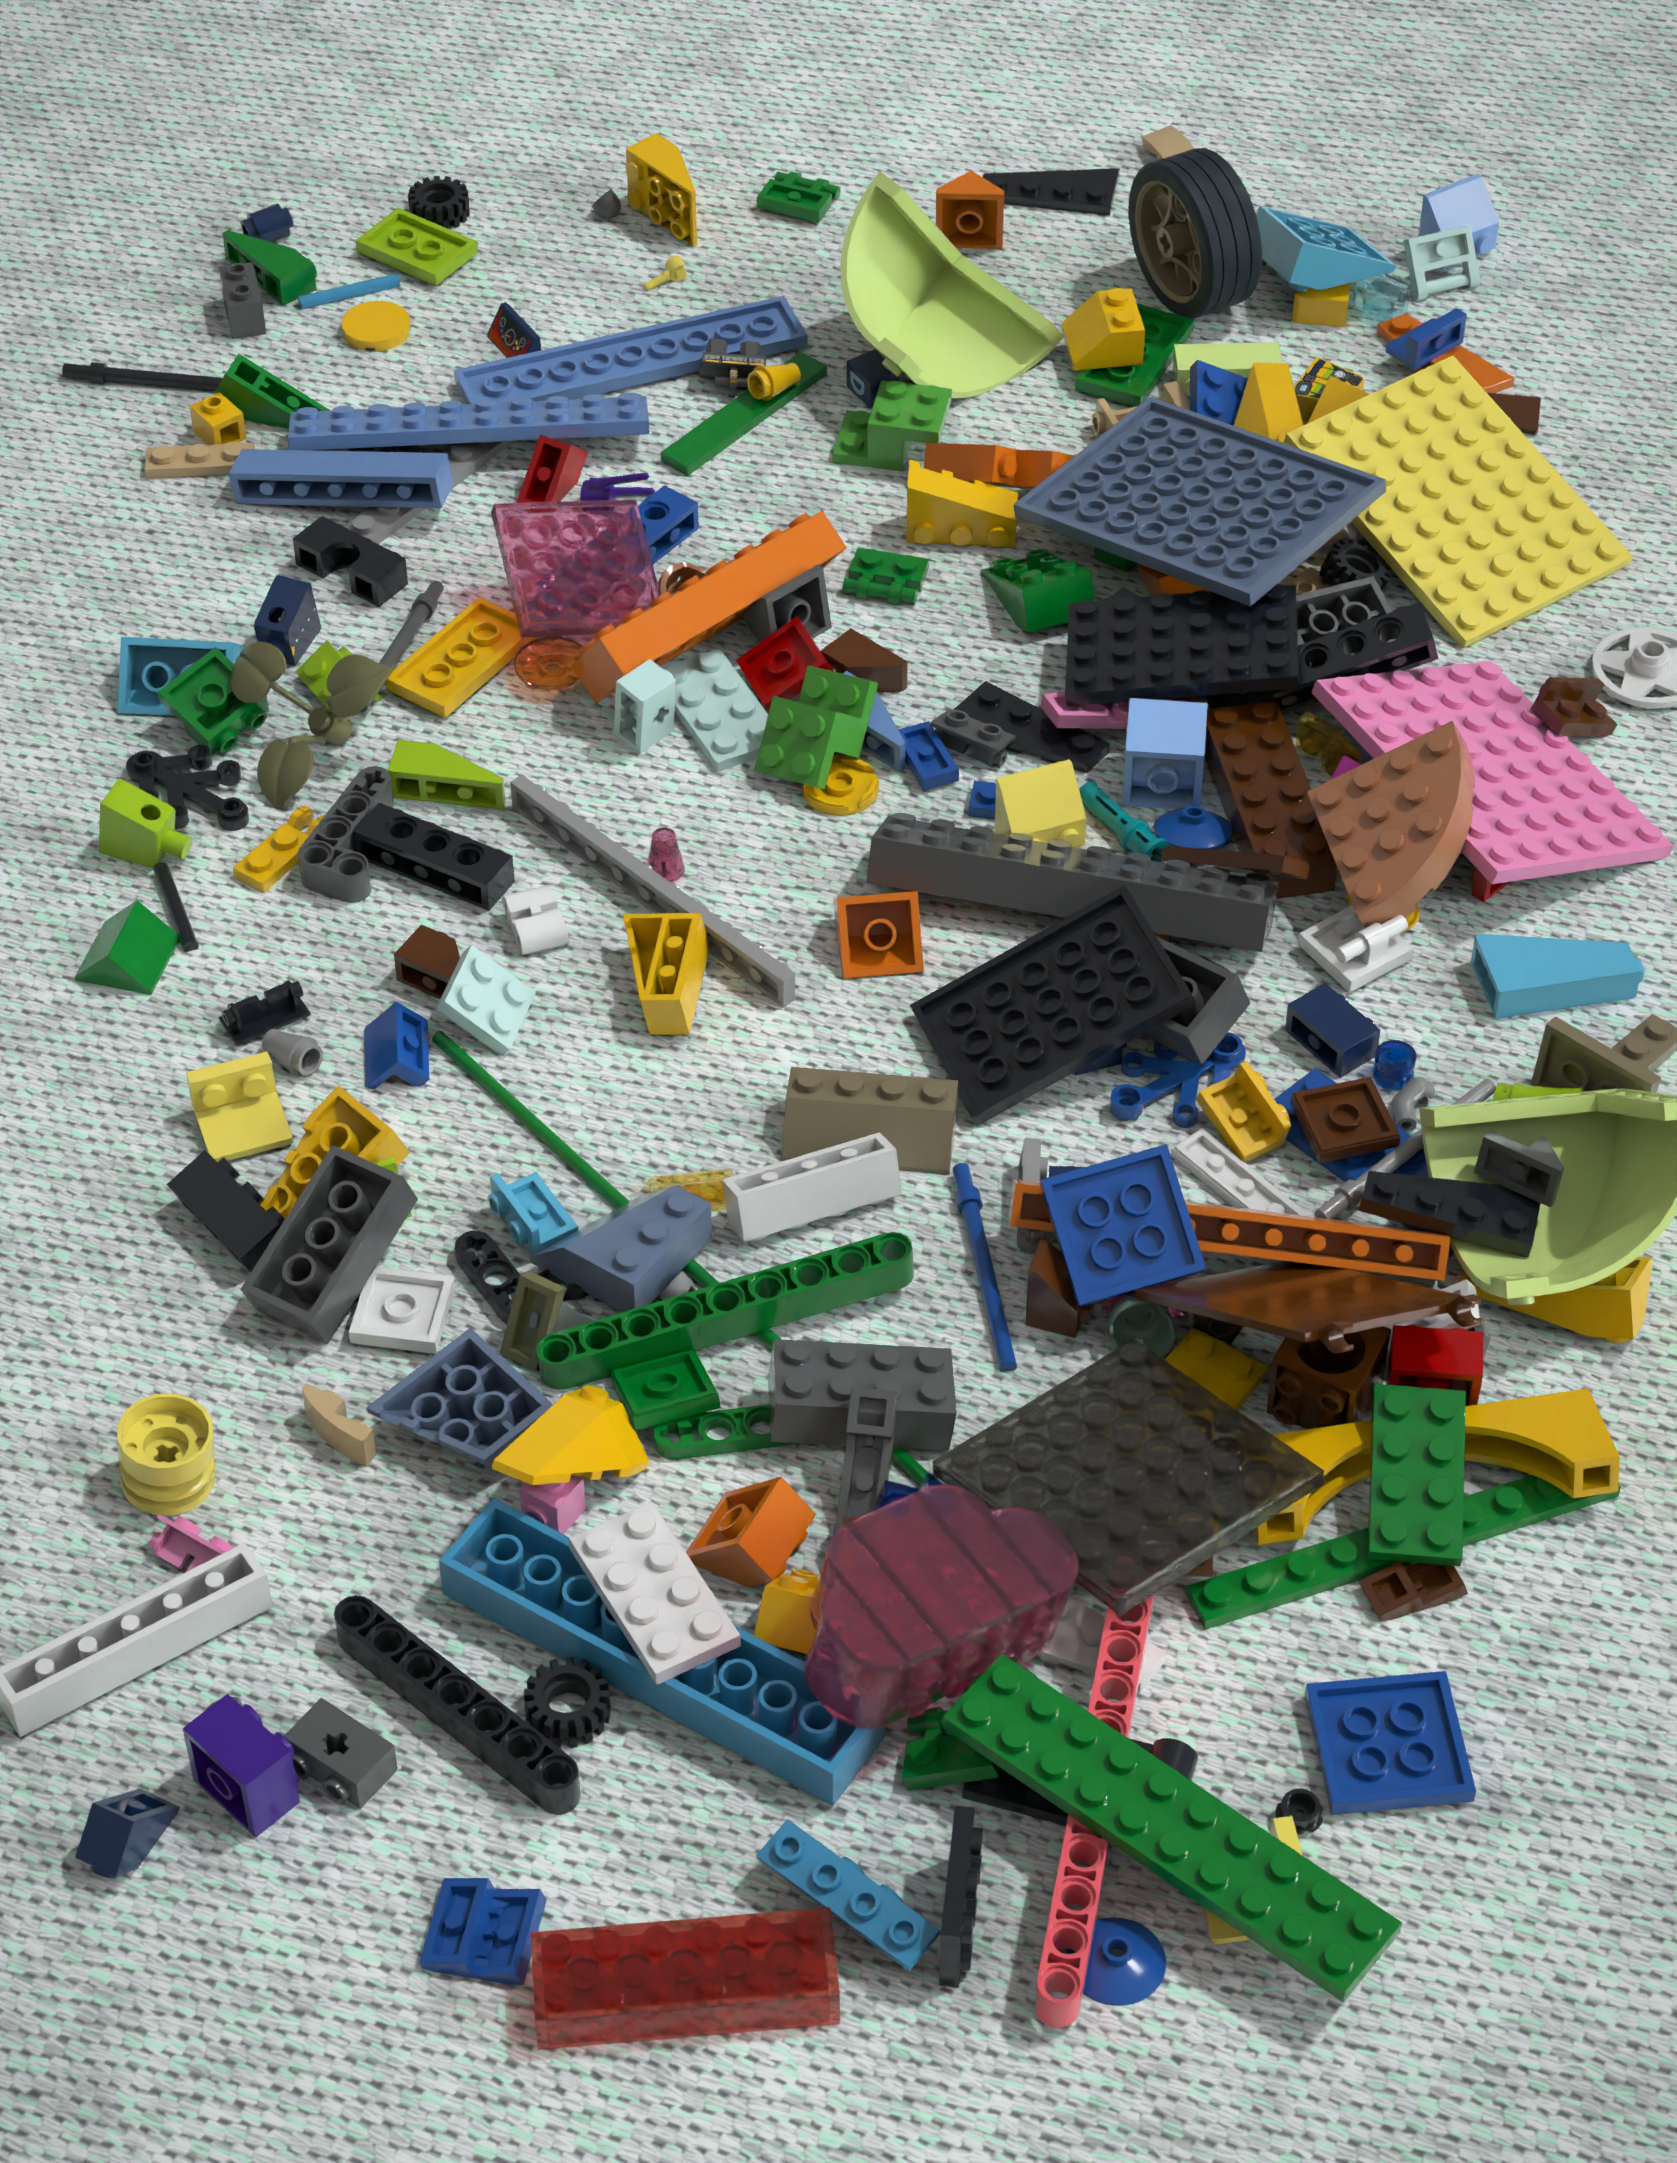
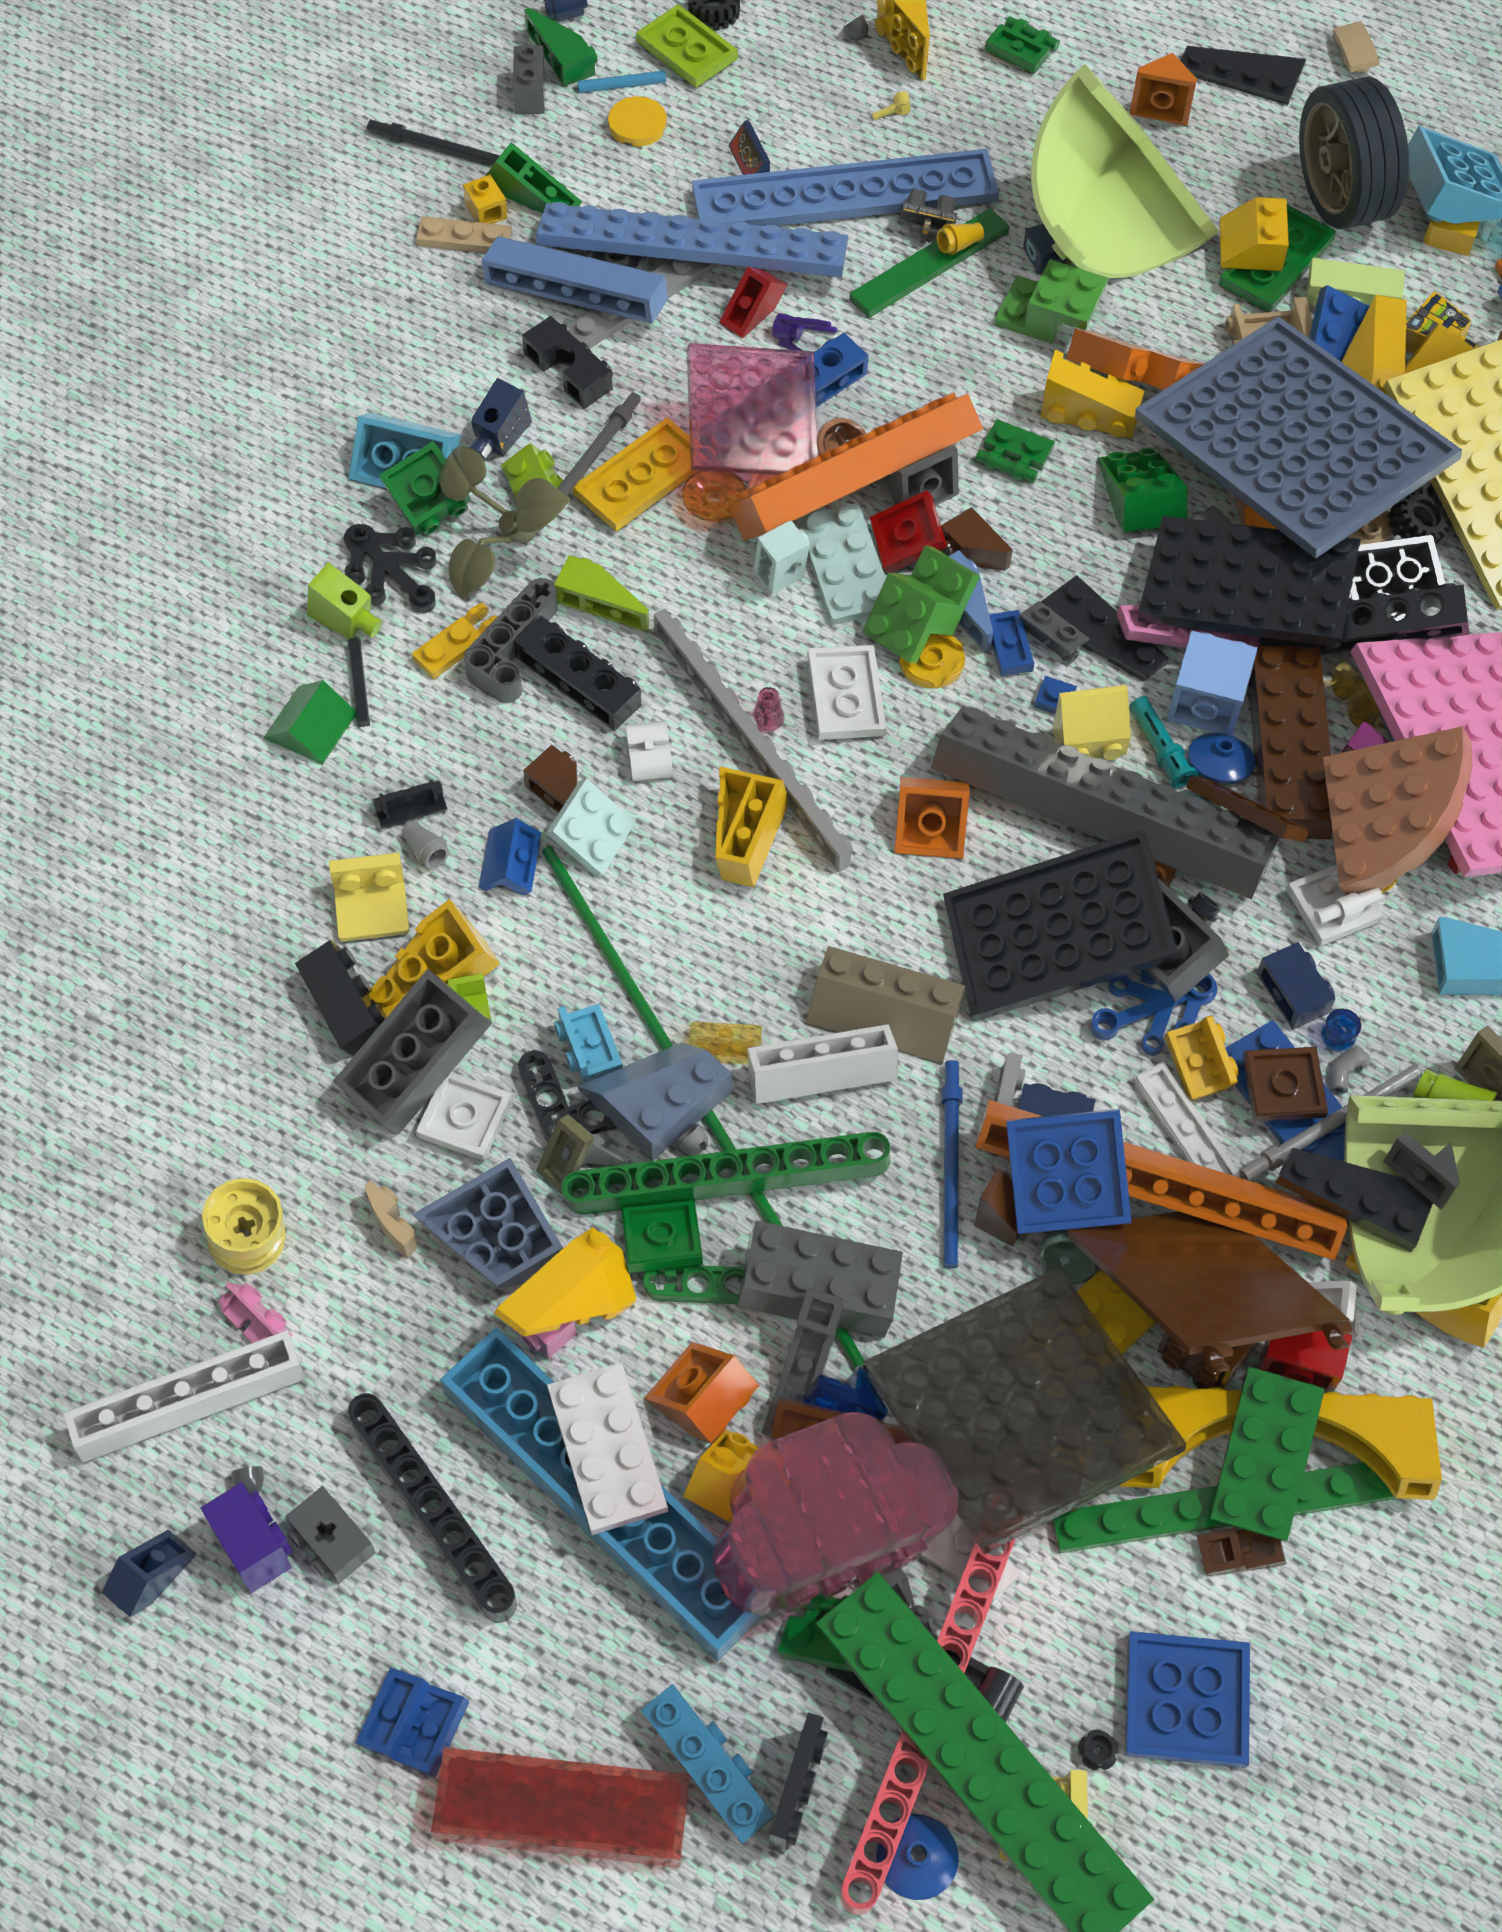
camera: 10 degrees right, 15 degrees up
(568, 1680) = (515, 1500): black tyre -> none
(750, 829) = (846, 692): none -> white plate

